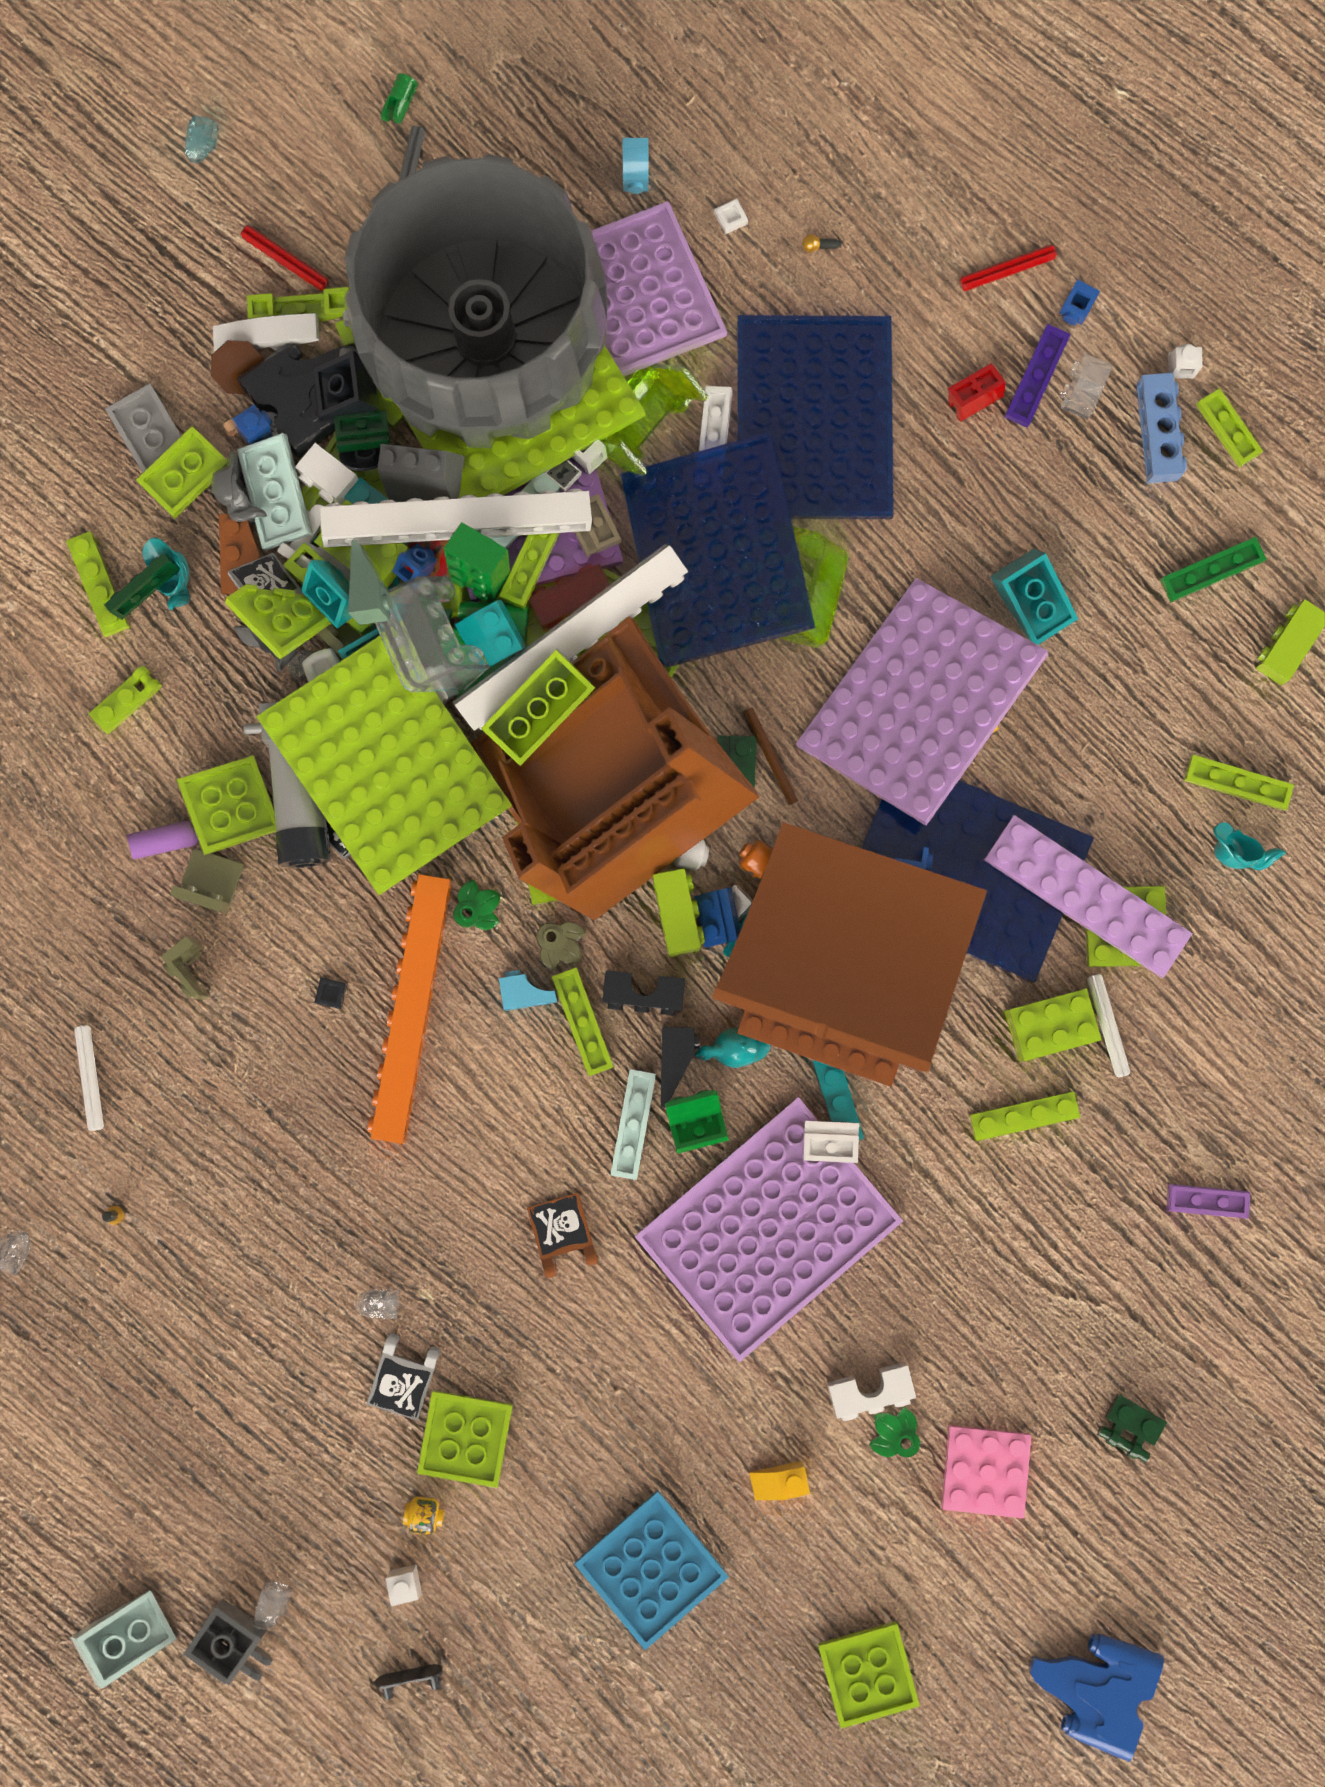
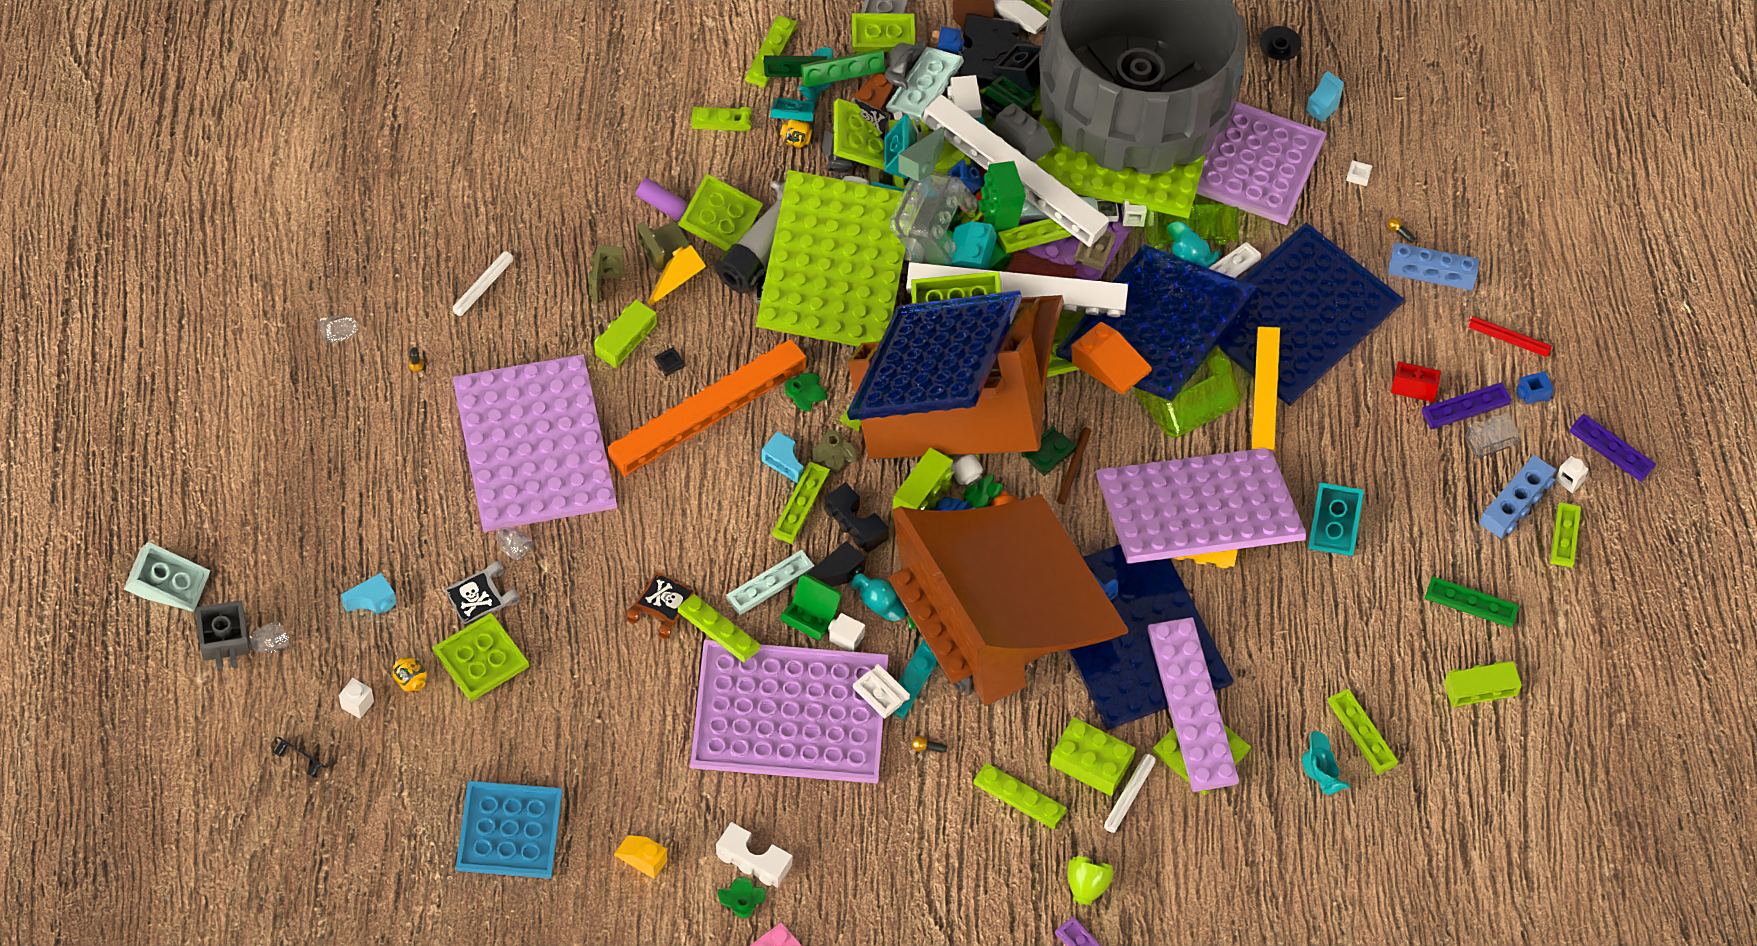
camera: 45 degrees right, 25 degrees down
(182, 632) = (793, 109): none -> teal tile
(189, 550) = (843, 68): none -> green plate
(208, 652) = (796, 133): none -> yellow head
(250, 900) = (677, 270): none -> yellow slope
(266, 1006) = (625, 333): none -> lime brick
(295, 1188) = (534, 443): none -> lavender plate
(316, 1472) = (372, 595): none -> medium azure arch
(540, 130) = (1280, 43): none -> black dish
(604, 809) = (935, 356): none -> clear blue plate
(637, 1214) = (719, 628): none -> lime plate
(667, 440) = (1190, 246): none -> teal hair
(725, 636) = (1109, 358): none -> orange slope
(726, 863) = (980, 494): none -> green plate
(742, 1110) = (846, 632): none -> white brick
(863, 524) = (1266, 388): none -> yellow tile
(885, 257) = (1433, 266): none -> medium blue brick
(902, 1150) = (920, 743): none -> piece
(1155, 1141) = (1088, 880): none -> lime piece
(1191, 301) = (1612, 447): none -> dark purple plate

